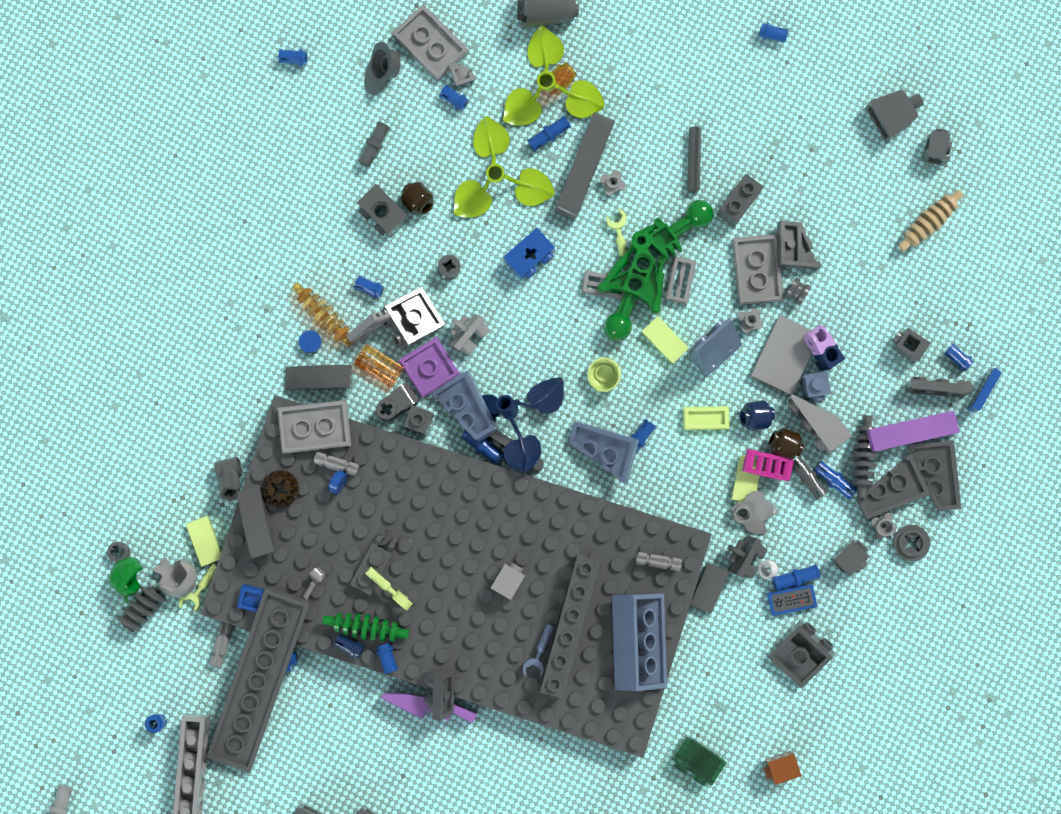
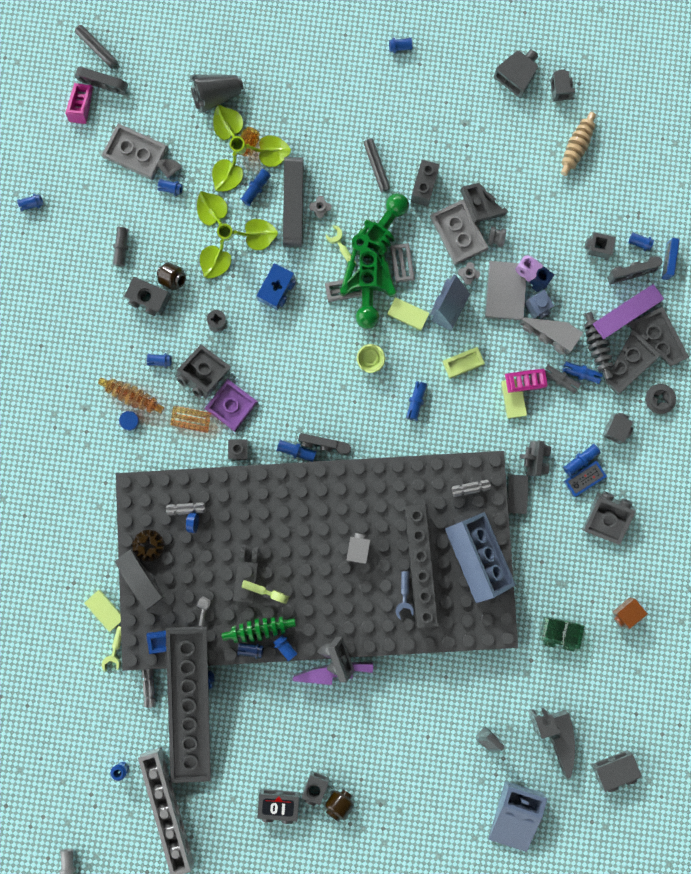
camera: 20 degrees left, 0 degrees up
(110, 551) = (38, 639): dark grey bush -> none
(123, 577) = (50, 663): green hat -> none
(141, 607) = (73, 684): dark grey piece -> none
(177, 578) = (93, 649): light grey hat -> none
(228, 474) = (103, 551): dark grey piece -> none
(314, 427) = (157, 486): light grey tile -> none
(318, 377) = (146, 446): dark grey slope -> none
(368, 326) = (170, 390): light grey tile -> none
(382, 67) = (104, 184): dark grey piece -> none
(399, 400) = (217, 440): dark grey piece -> none
(467, 405) = (272, 423): sand blue wing -> none
(474, 325) = (254, 358): light grey hips -> none
(548, 398) = (331, 443): dark blue plant -> none
(607, 448) = (394, 415): sand blue wing -> none
(756, 415) = (502, 345): dark blue head -> none
(756, 512) = (531, 421): light grey plate -> none
(764, 565) = (553, 462): white hinge -> none
(786, 443) = (533, 358): dark brown head -> none
(889, 528) = (639, 393): light grey plate -> none

